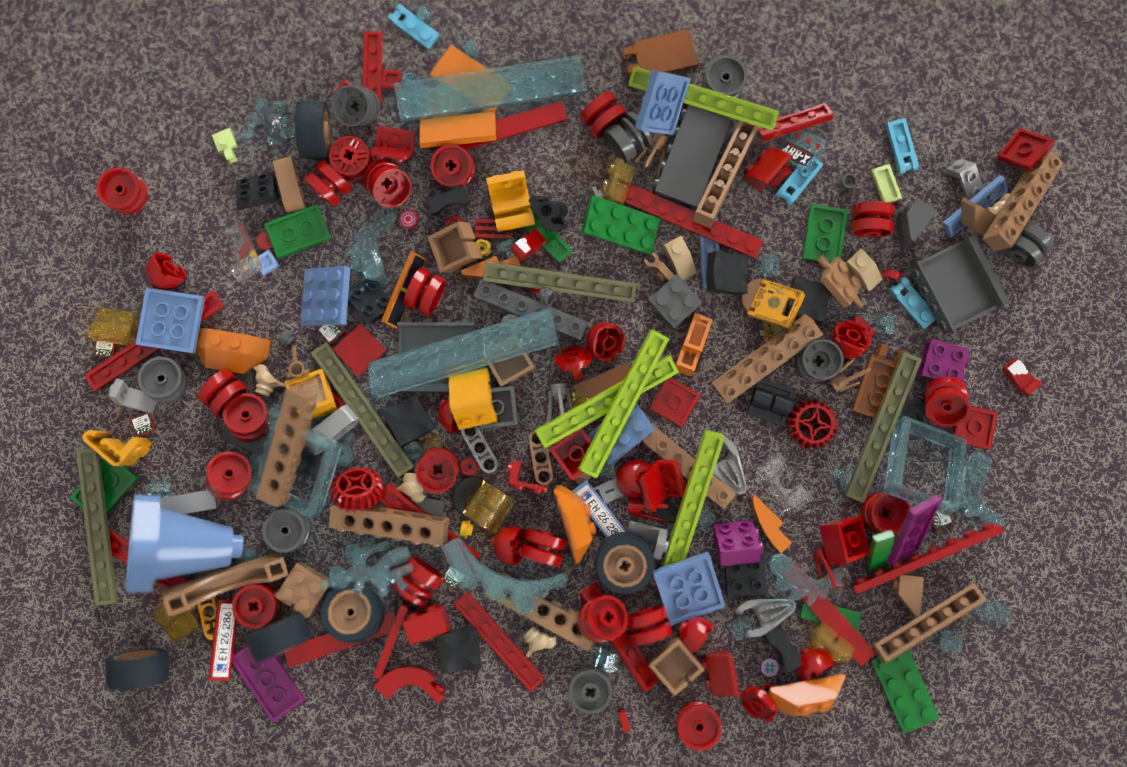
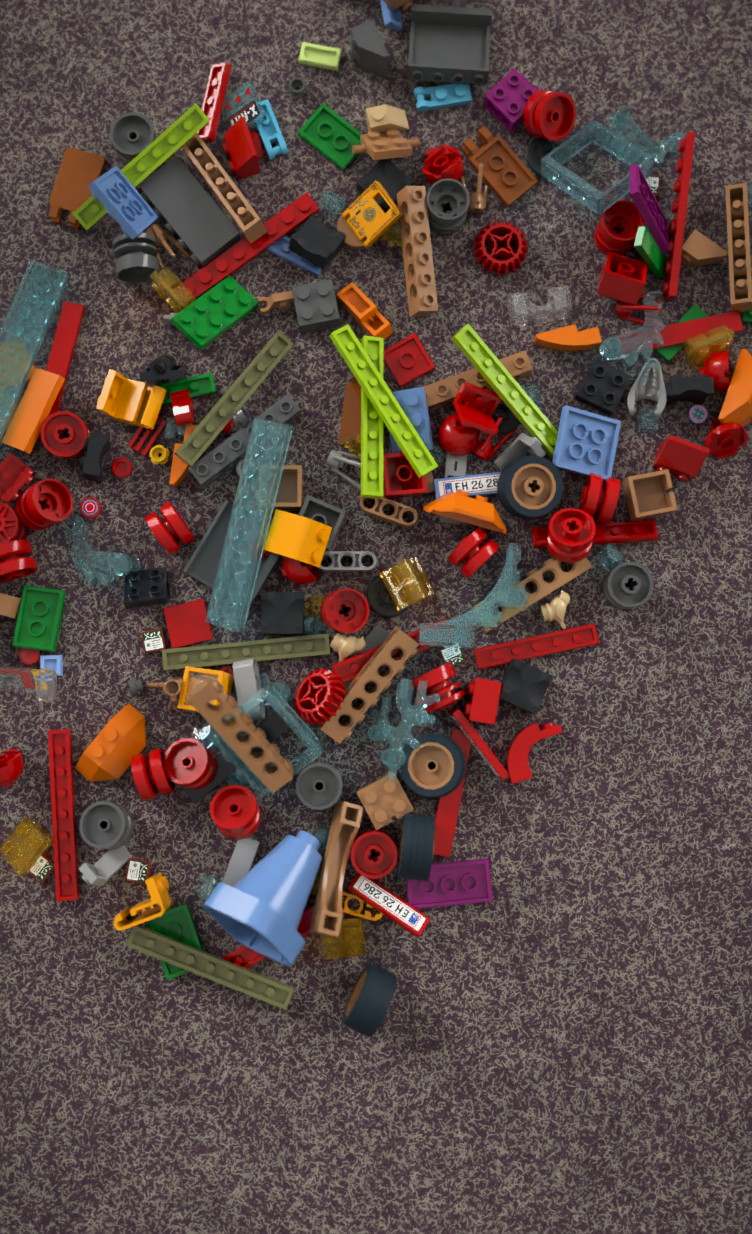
camera: 65 degrees left, 0 degrees up
(170, 320) = (53, 786): medium blue plate -> none
(265, 381) = (165, 728): tan animal -> none
(325, 296) = (118, 624): medium blue plate -> none
(395, 309) = (165, 562): tile -> none
(454, 247) = (143, 476): medium nougat piece -> none
(464, 466) = (358, 577): red plate -> none
(466, 528) = (414, 617): yellow plate -> none
(508, 545) = (452, 585): red cylinder -> none
(514, 470) = (387, 540): red bracket -> none
(573, 359) = (316, 428): red tile -> none
(601, 114) = (99, 268): red wheel -> none
(605, 341) = (314, 388): red cylinder -> none
(624, 720) = (672, 571): red tile -> none
(680, 258) = (276, 277): tan slope -> none
(694, 633) = (630, 460): red cylinder -> none
(707, 734) = (726, 502): red wheel -> none
(730, 469) = (499, 343): light grey animal -> none
(737, 543) = (570, 375): magenta brick -> none
(771, 402) = (459, 273): black plate -> none
(844, 476) = (564, 247): clear light blue tile -> none
(872, 219) = (345, 83): red wheel -> none
(883, 426) = (539, 186): olive plate -> none
(887, 322) = (447, 128): clear light blue tile -> none
(891, 274) = (405, 99): red tile -> none
(902, 145) = (293, 21): medium azure plate -> none
(977, 428) = (589, 105): red tile -> none
(1020, 377) = (565, 41): red leg -> none

